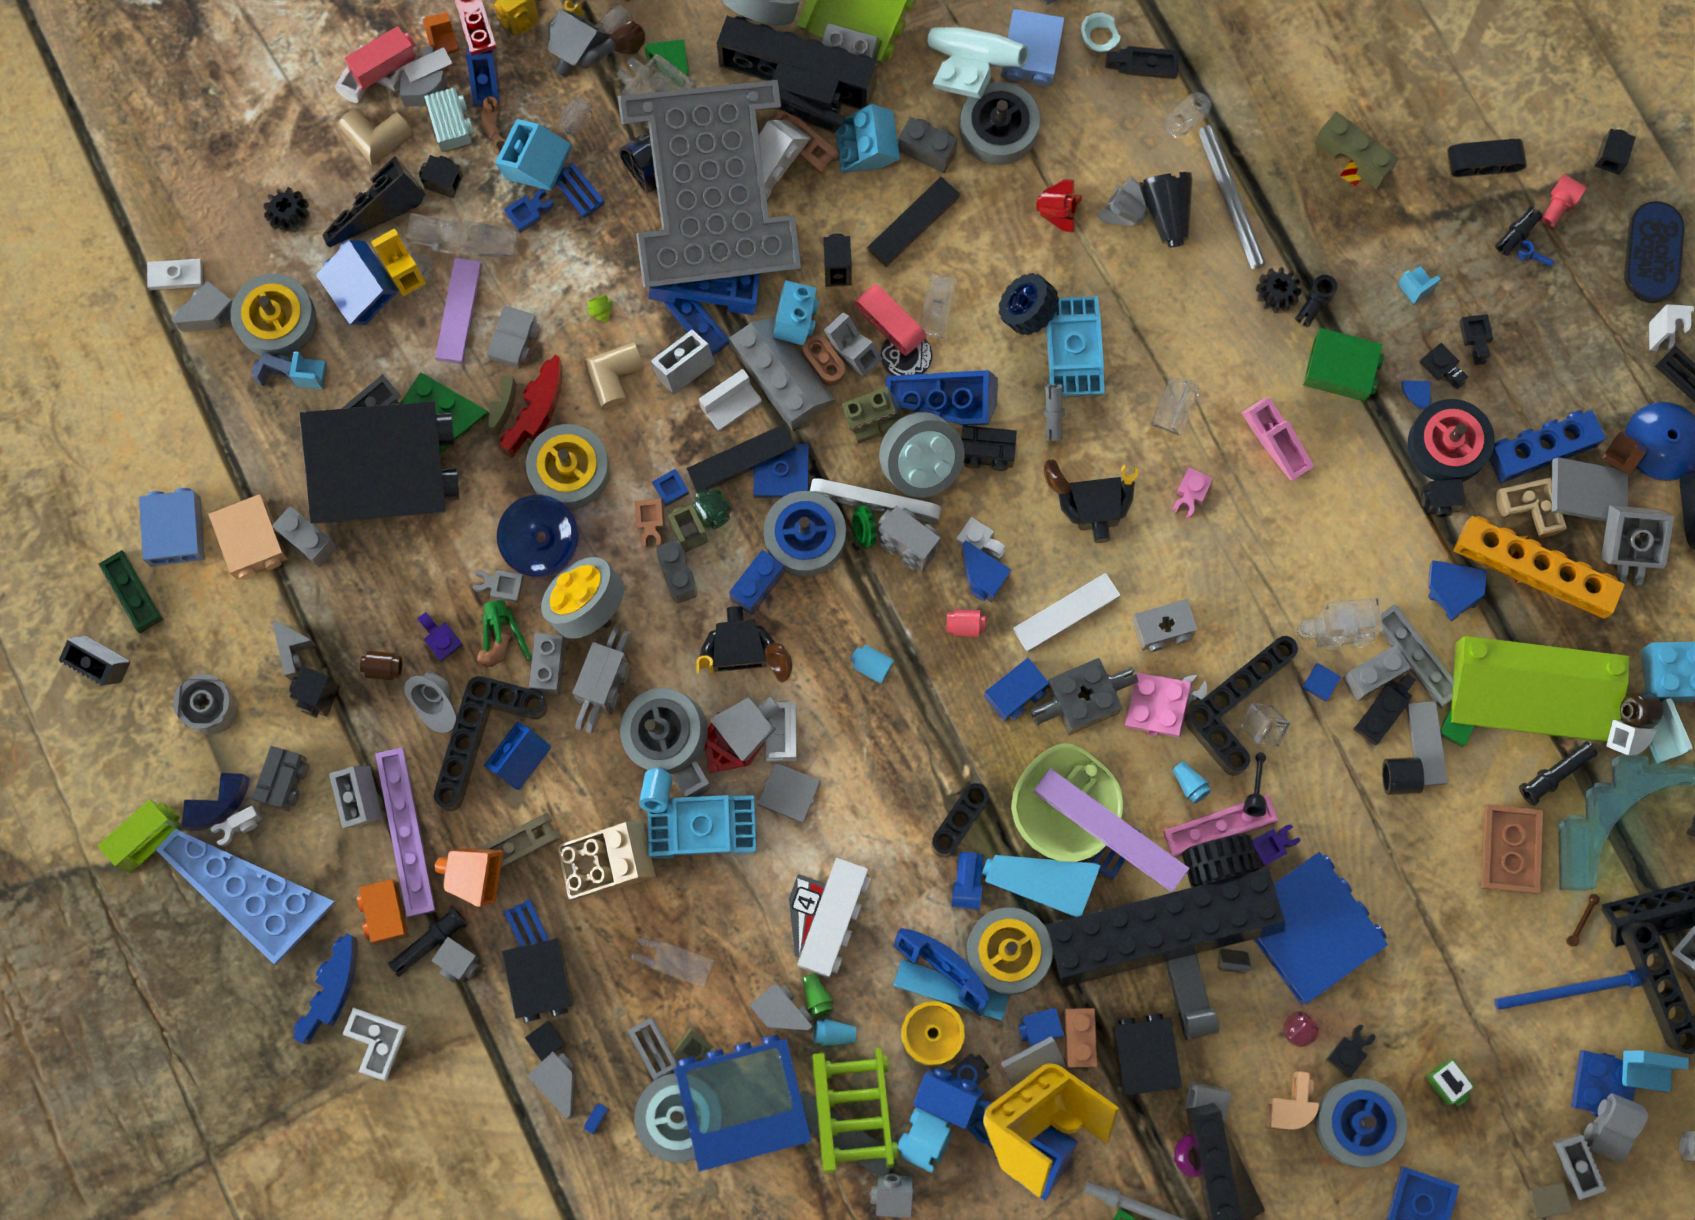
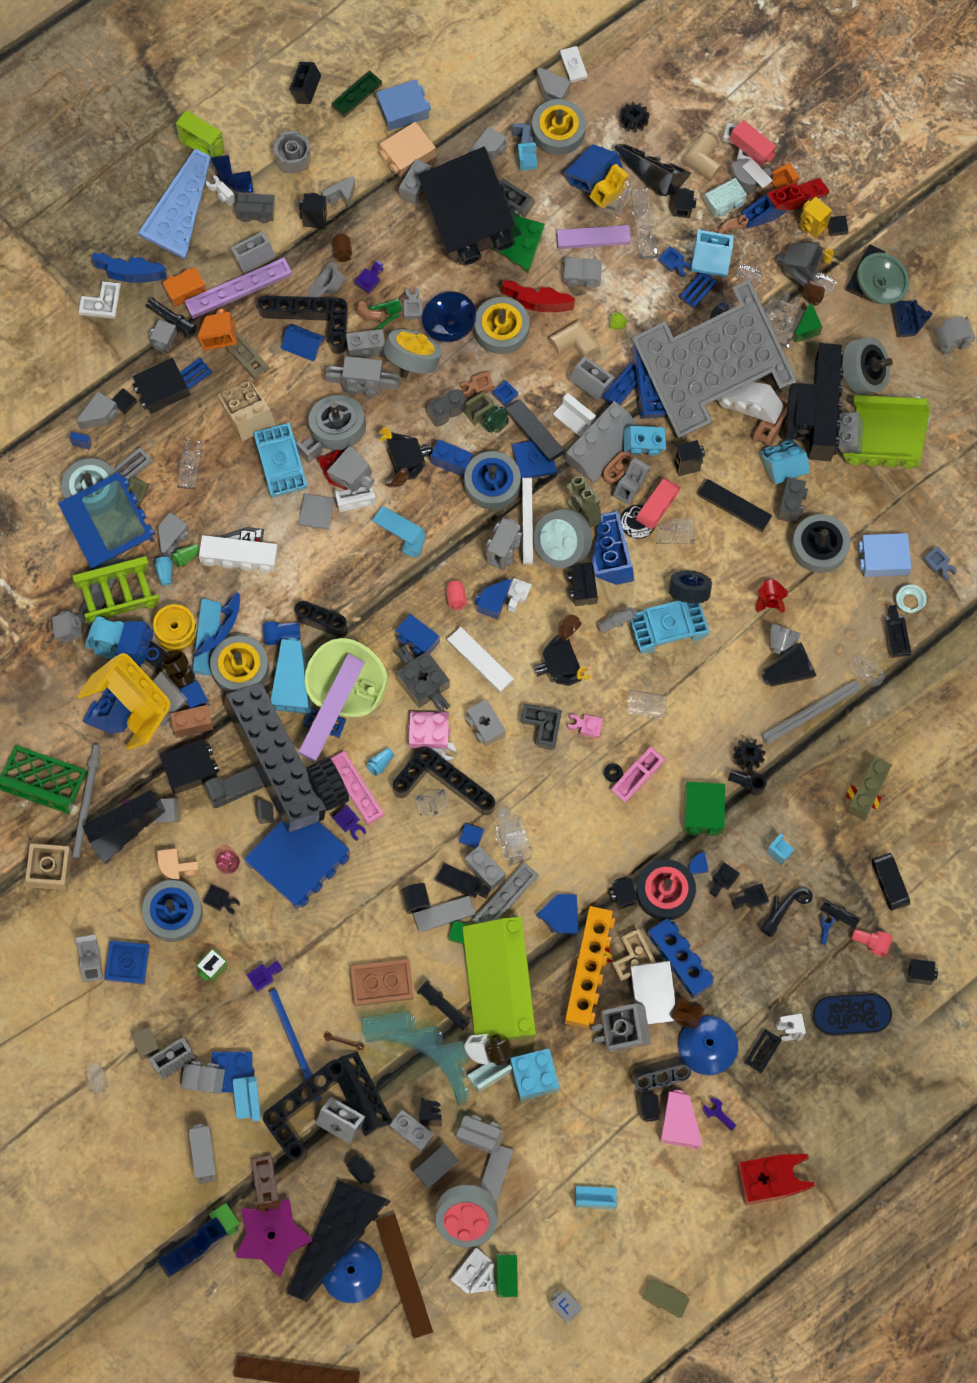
camera: 75 degrees right, 5 degrees down
(275, 420) = (493, 141): none -> light grey slope
(500, 411) = (528, 277): olive slope -> none
(655, 790) = (295, 423): medium azure brick -> none
(845, 679) = (398, 526): none -> medium azure tile
(864, 526) = (508, 514): green gear -> none
(971, 56) = (865, 513): light aqua plate -> none
(999, 1041) = (178, 669): none -> dark brown wheel
(1180, 540) = (547, 721): none -> dark grey brick
(1255, 803) = (373, 803): black hinge -> none
(1271, 465) = (613, 767): none -> black plate
(1476, 1014) = (262, 977): none -> dark purple plate
(1498, 305) = (778, 910): none -> black plant

